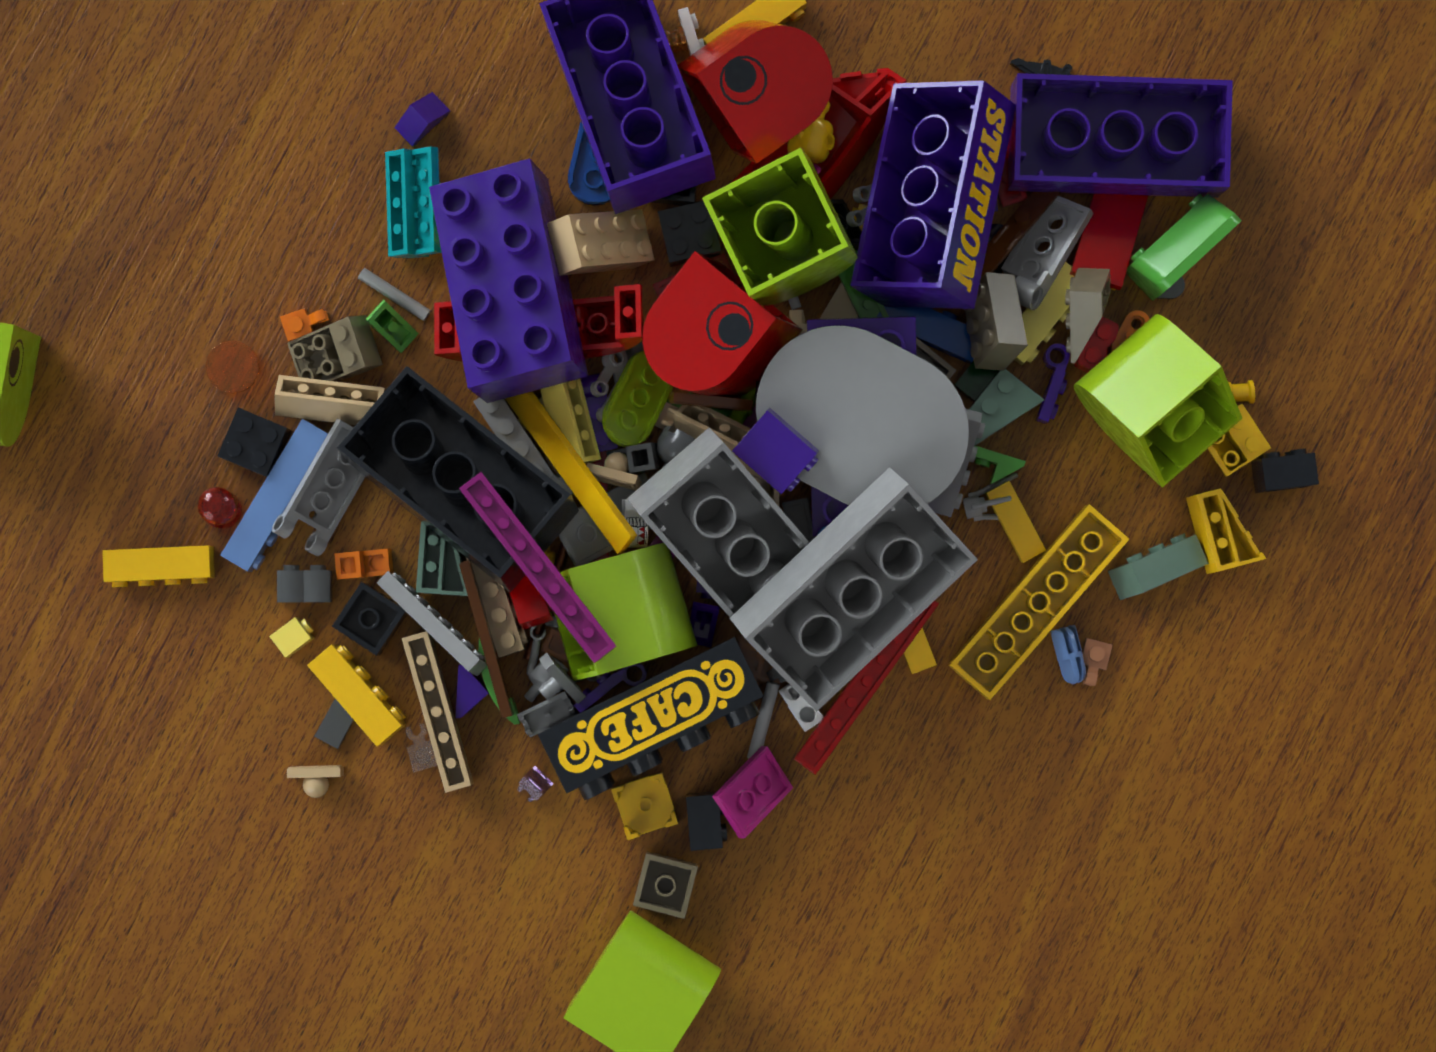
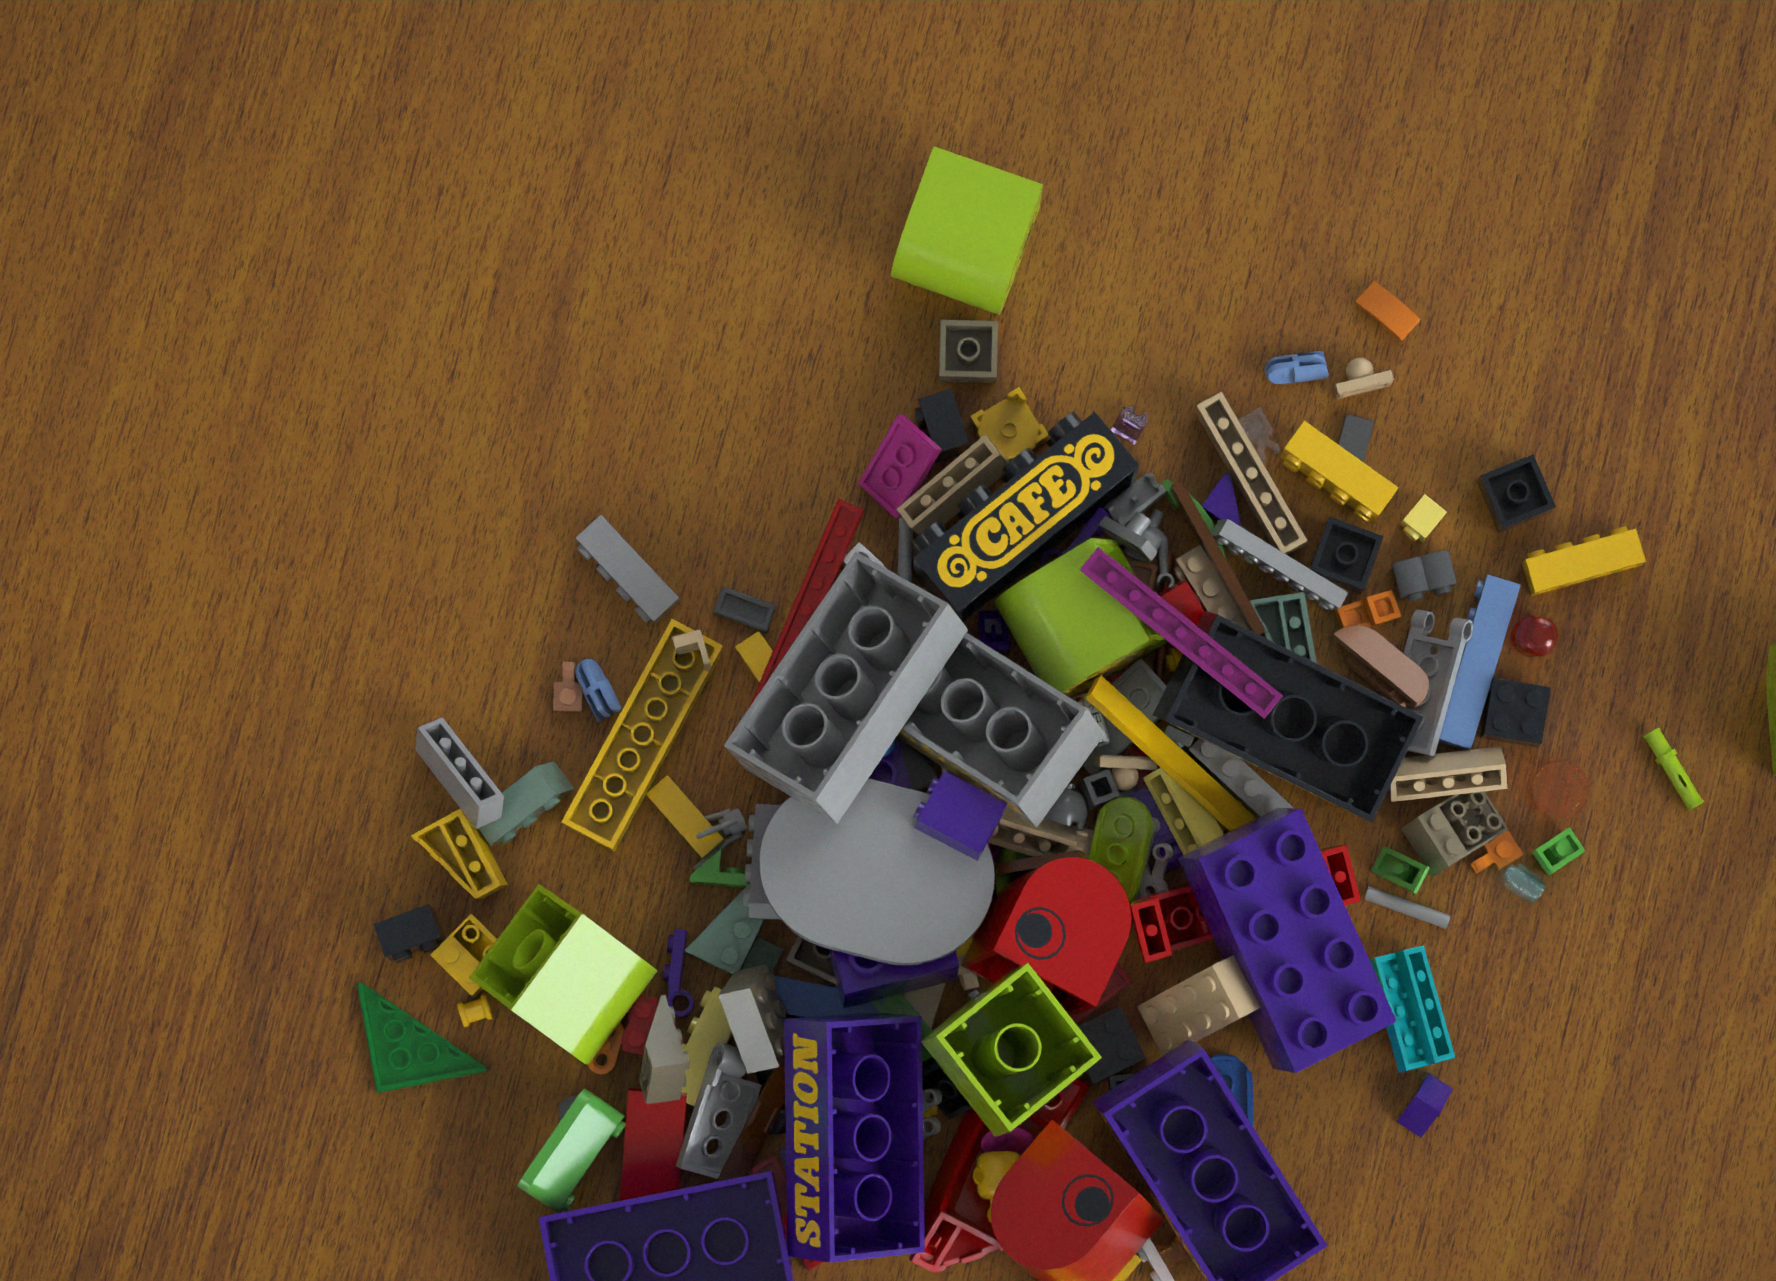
camera: 170 degrees right, 5 degrees down
(130, 372) = (1673, 768): none -> lime pin
(203, 639) = (1516, 493): none -> black brick
(248, 310) = (1558, 851): none -> bright green slope
(276, 835) = (1388, 310): none -> orange slope
(285, 291) = (1523, 882): none -> clear light blue brick
(361, 510) = (1382, 665): none -> nougat brick
(371, 800) = (1297, 368): none -> medium blue arm
(708, 760) = (941, 495): none -> tan brick
(920, 696) = (744, 609): none -> dark grey tile
(974, 671) = (691, 642): none -> tan panel
(1018, 756) = (627, 570): none -> light grey brick
(1211, 604) = (459, 773): none -> light grey brick
(1307, 373) = (406, 1050): none -> green tile

